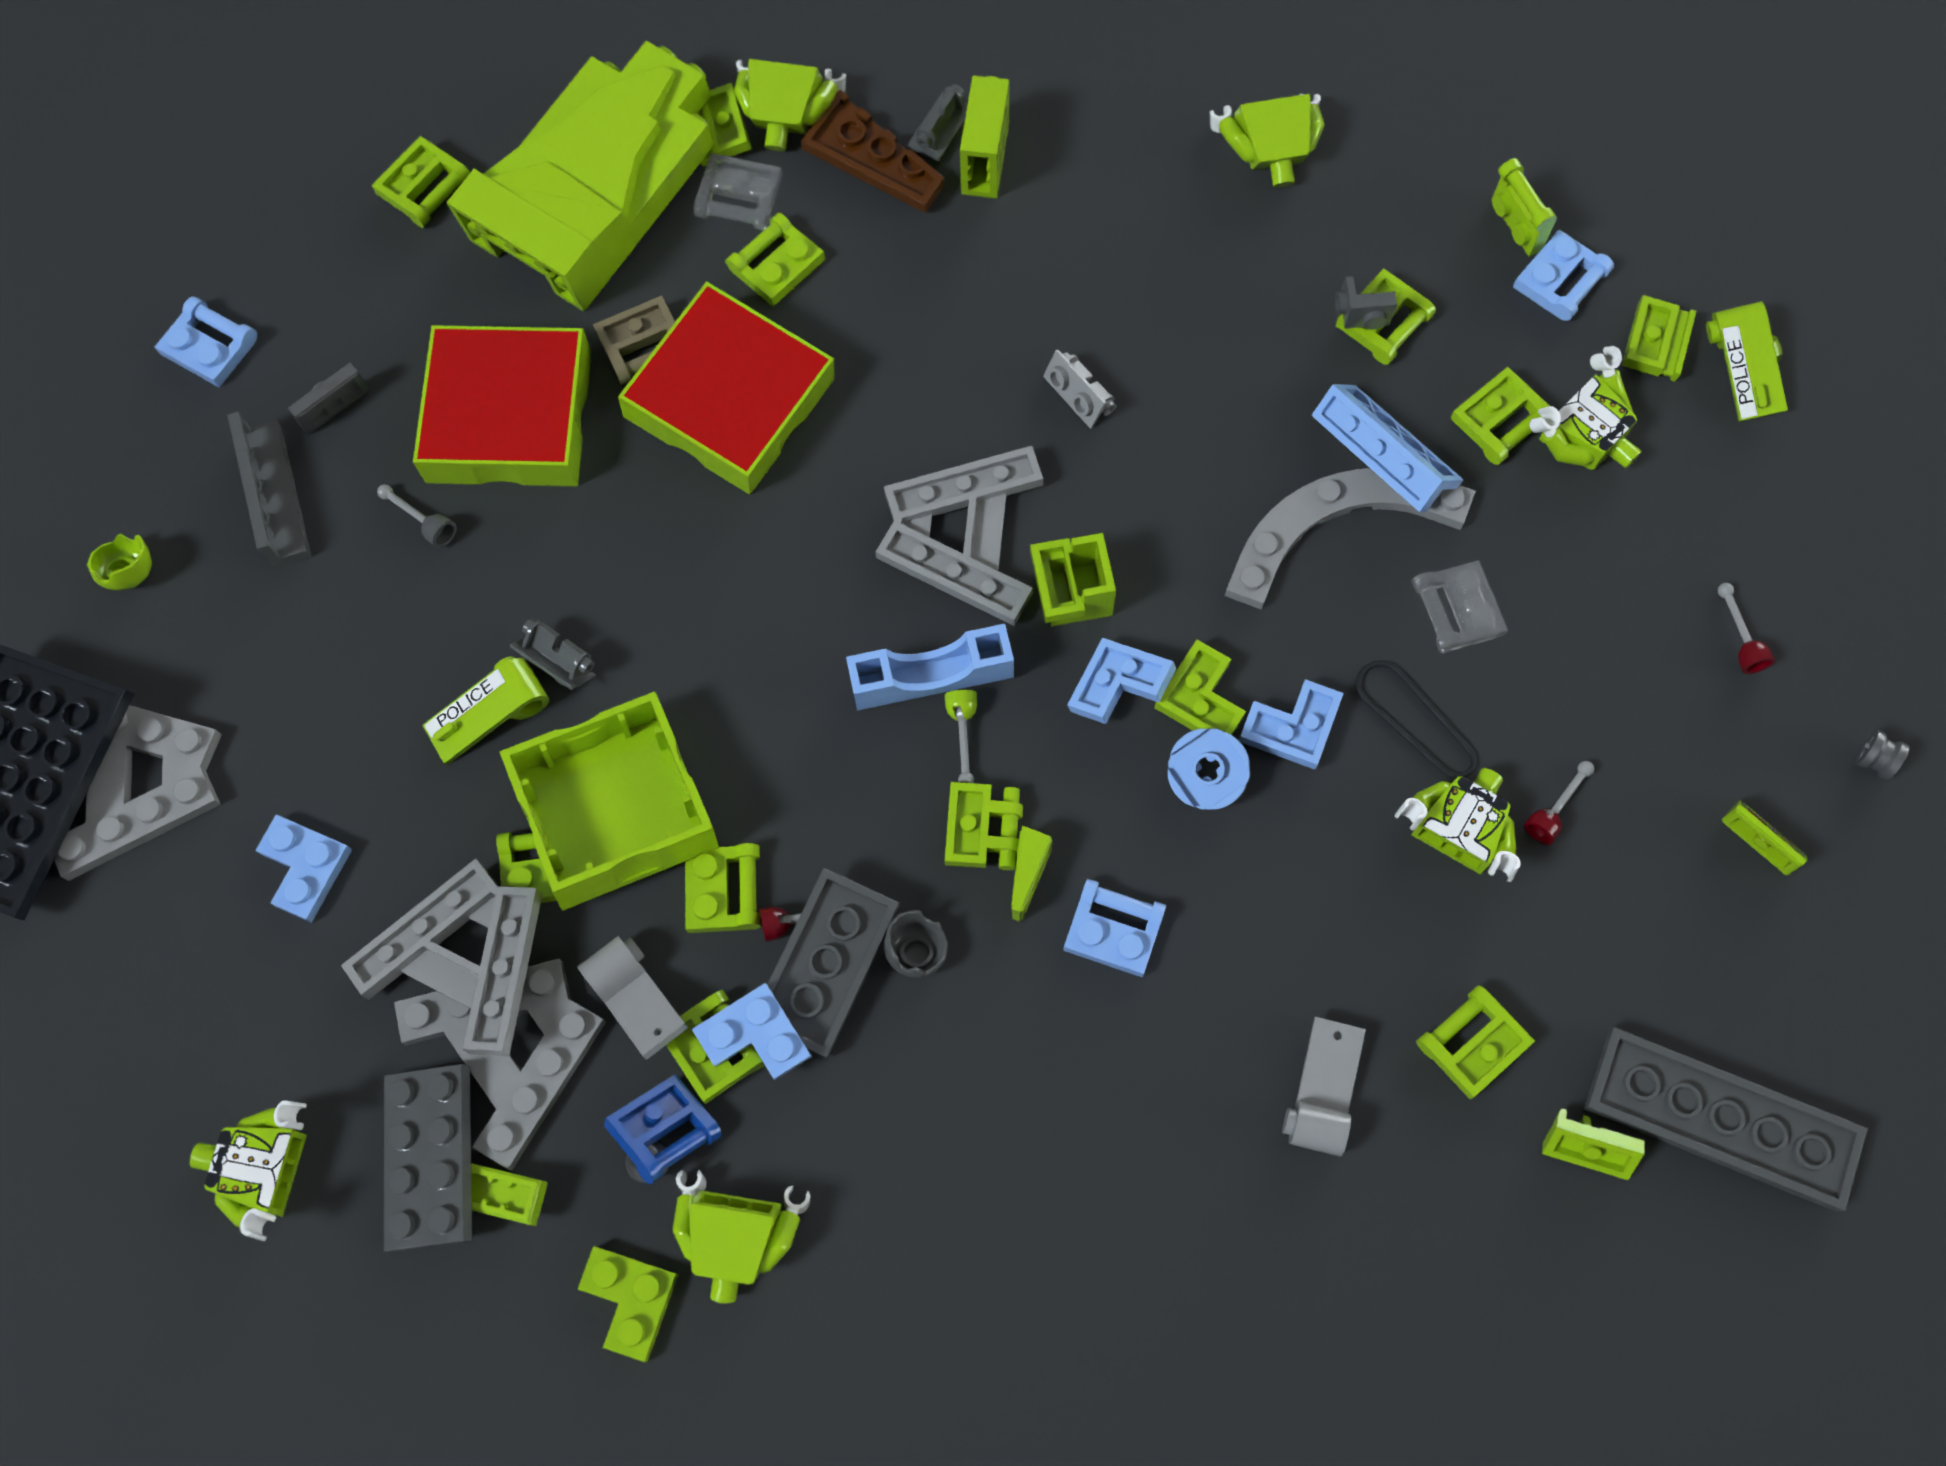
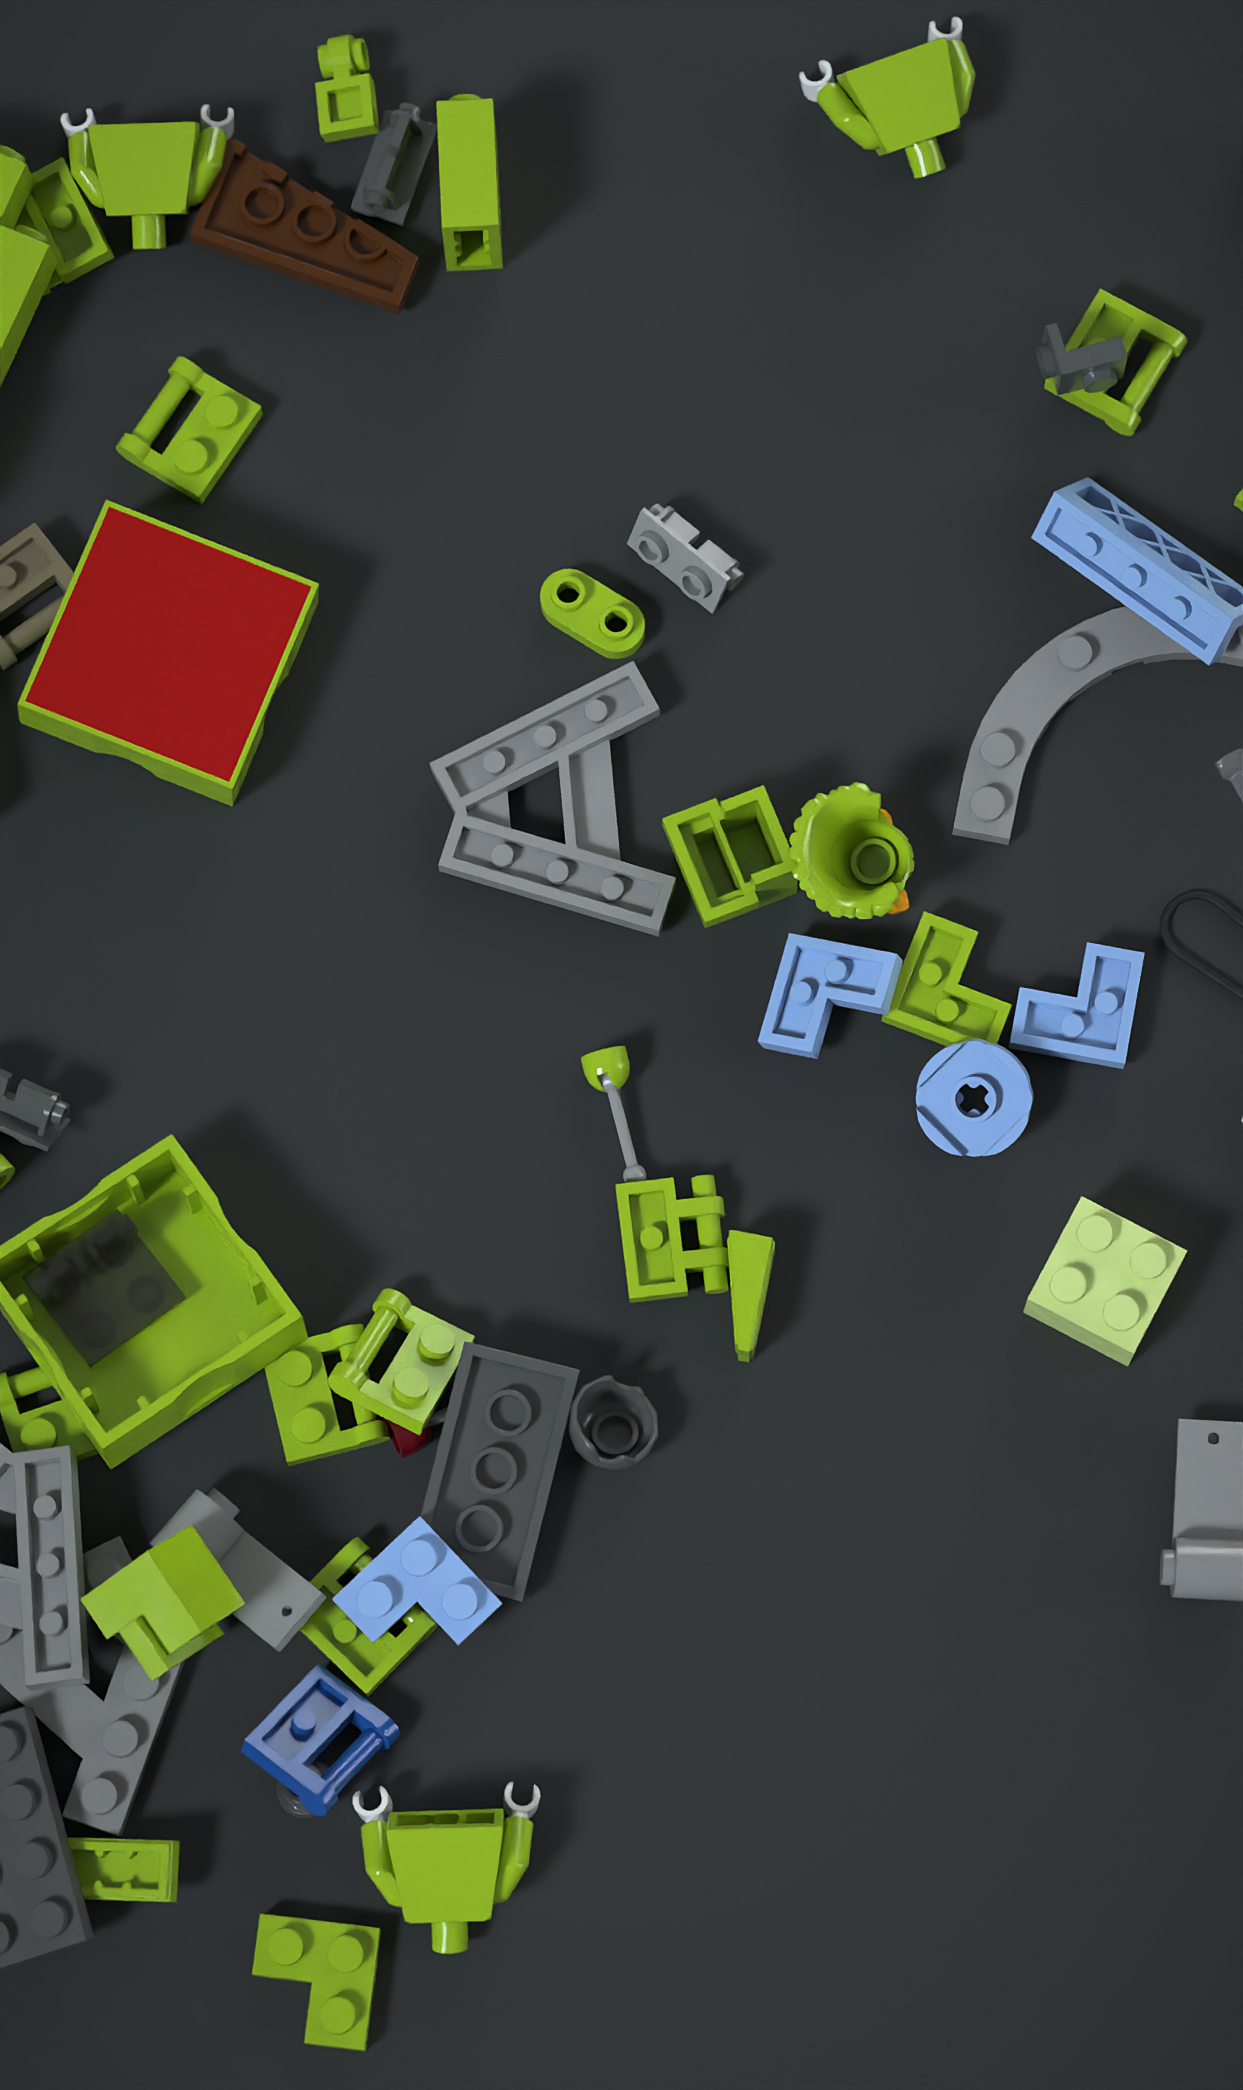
camera: 10 degrees left, 5 degrees up
(572, 1009) = (166, 1602): none -> lime plate
(587, 786) = (104, 1287): none -> clear smoke hinge
(741, 181) = (114, 314): clear plate -> none
(787, 885) = (418, 1371): none -> lime plate
(893, 677) = (519, 1042): light blue arch -> none
(920, 77) = (348, 101): none -> lime plate
(1008, 413) = (589, 614): none -> lime plate
(1109, 940) = (882, 1366): light blue plate -> none
(1154, 588) = (851, 854): none -> lime hair
(1278, 910) = (1104, 1281): none -> yellowish green brick

